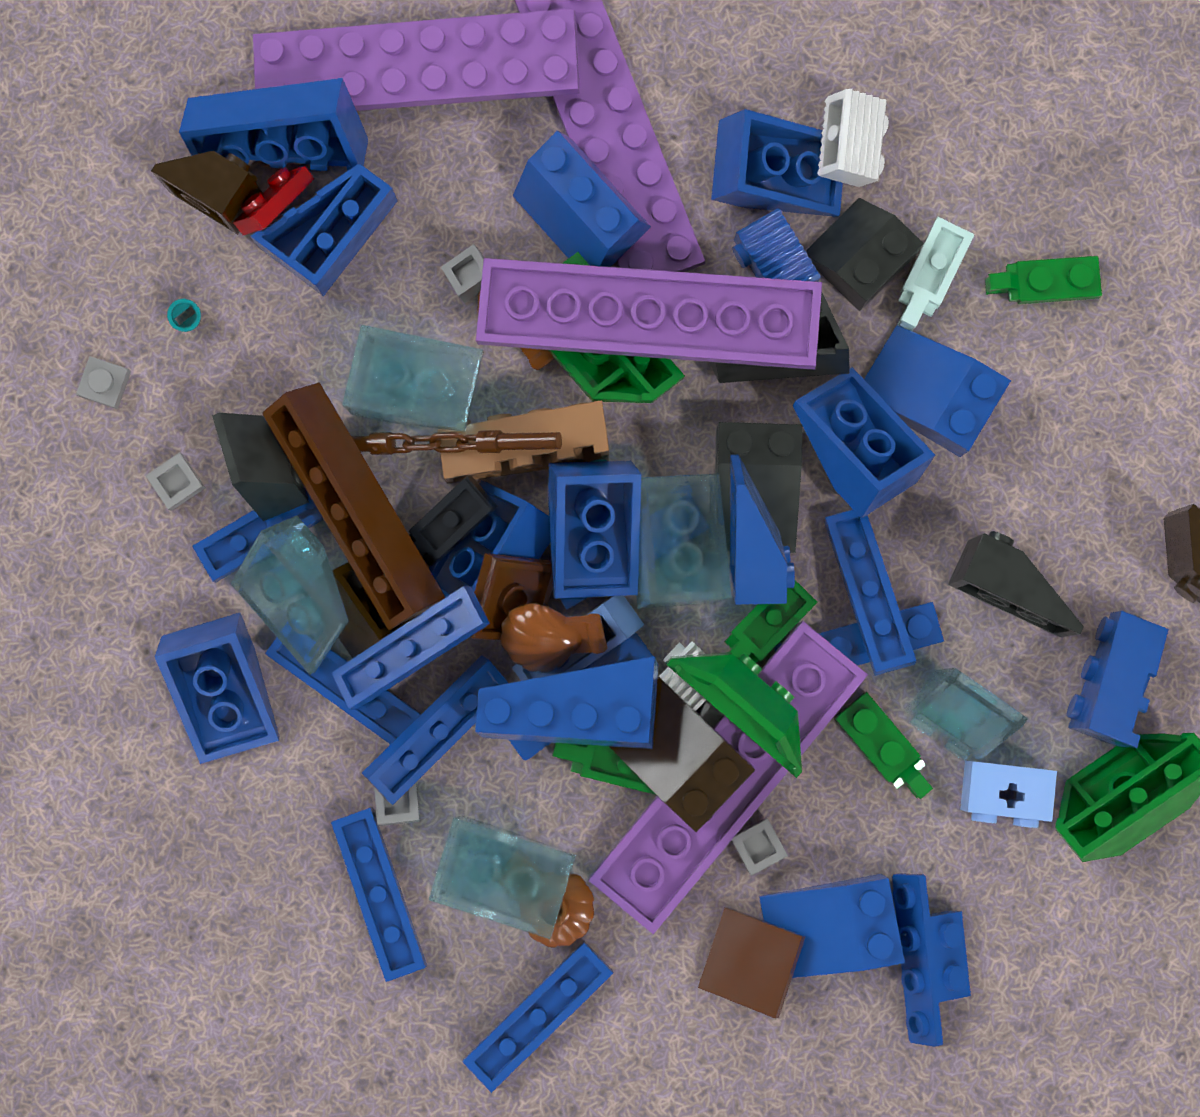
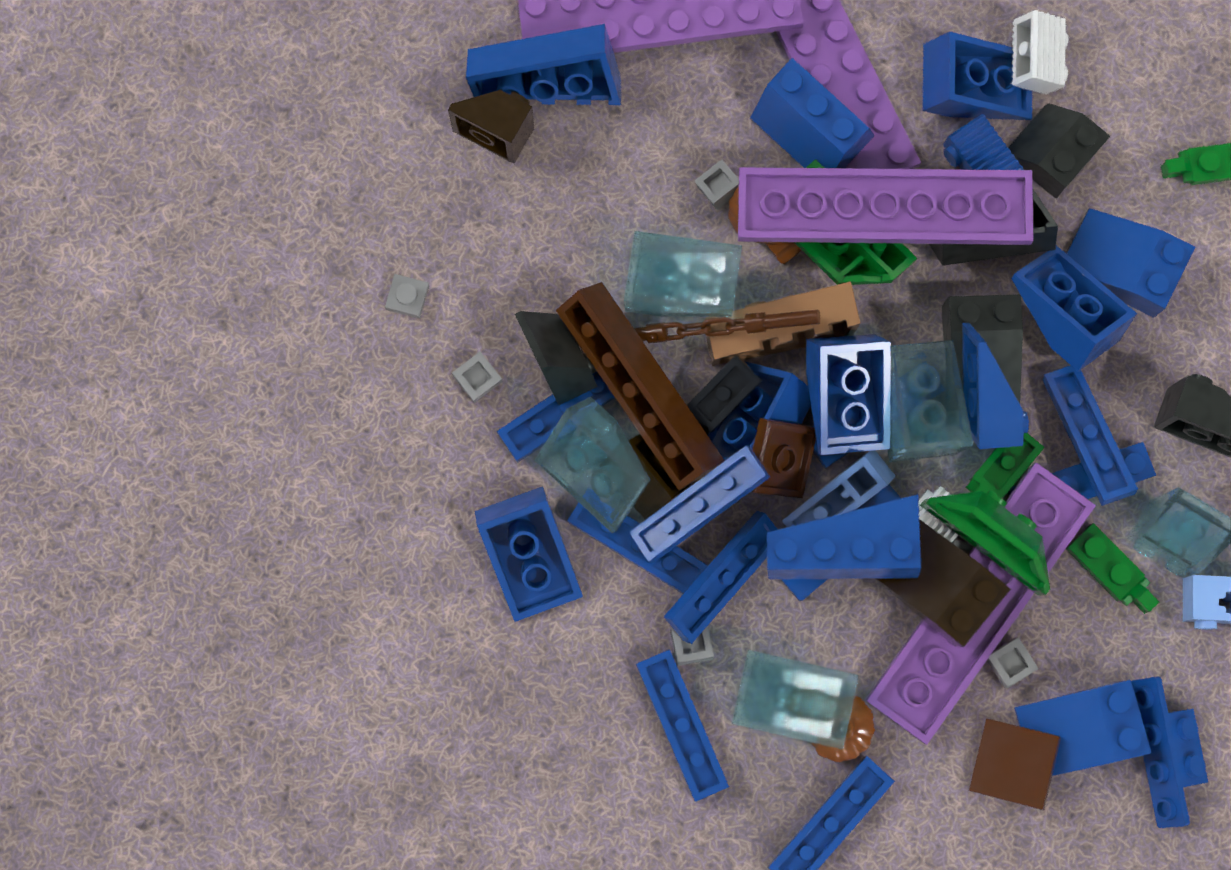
camera: 10 degrees left, 5 degrees down
(180, 306) = (481, 239): teal hinge -> none
(265, 207) = (543, 136): red plate -> none
(329, 228) = (597, 153): blue wedge -> none
(545, 638) = (814, 489): dark orange animal -> none
(599, 764) = (870, 598): green hinge -> none
(933, 271) = (1117, 161): light aqua hinge -> none

